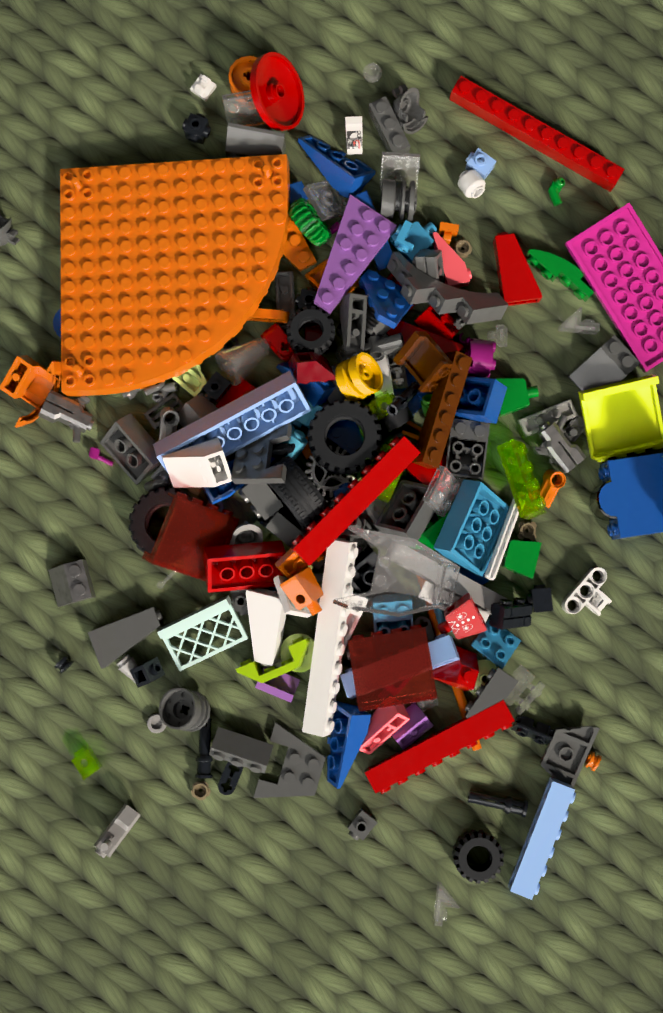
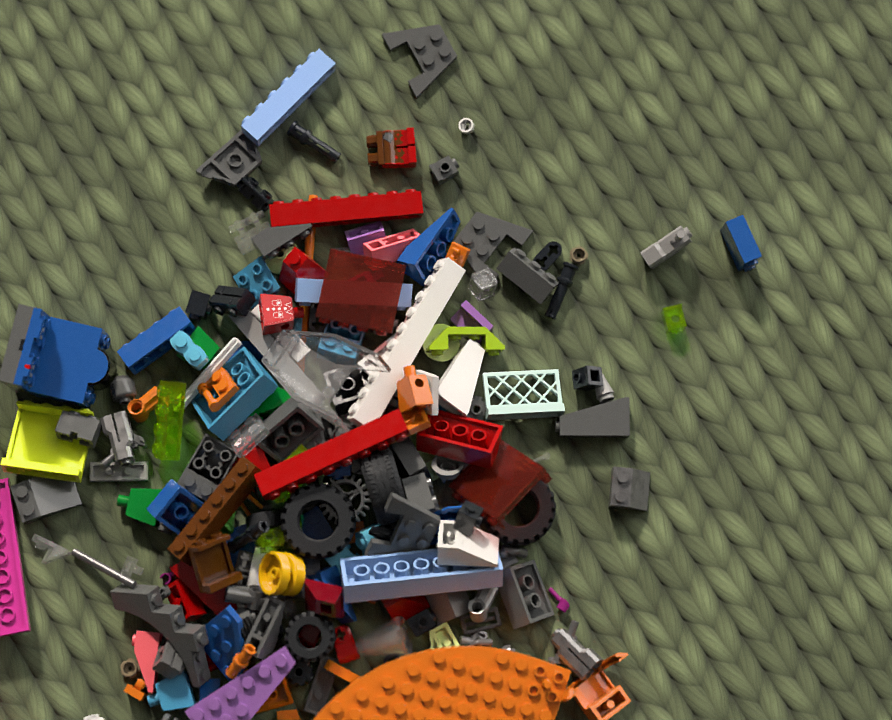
camera: 155 degrees left, 5 degrees down
(45, 862) = (741, 243): none -> blue brick
(63, 664) = (663, 416): black bush -> none
(155, 723) = (596, 330): light grey tile -> none
(184, 709) = (575, 330): dark grey wheel -> none
(205, 490) = (468, 518): none -> black brick
(280, 725) = (483, 284): none -> clear panel
(316, 745) = (458, 253): none -> orange tile
(361, 878) = (463, 126): none -> white hinge
(364, 284) = (240, 661): none -> orange pin
(402, 233) = (182, 701): dark azure bracket -> none
(418, 827) = (394, 149): none -> hips
(422, 942) = (430, 50): none -> dark grey wing
(442, 899) = (397, 78): clear slope -> none
(482, 356) = (156, 553): magenta brick -> none
(482, 872) = (346, 89): black tyre -> none
(485, 529) = (223, 385): none -> orange plate
(514, 274) = (91, 622): red slope -> none
(523, 324) = (104, 568): none -> flat silver bar
(532, 530) = (179, 373): dark tan plate -> none
(534, 552) = (185, 347): none -> medium azure brick
(555, 189) = (15, 692): green arm -> none
(555, 266) = (49, 613): green slope -> none
(565, 550) = (155, 340): none -> blue brick
(573, 430) = (101, 450): dark grey piece -> none
(576, 492) = (123, 389): none -> dark grey head
(592, 761) = (213, 145): orange bush -> none
(594, 600) = (150, 286): white piece -> none
(596, 440) = (78, 427): none -> dark grey brick

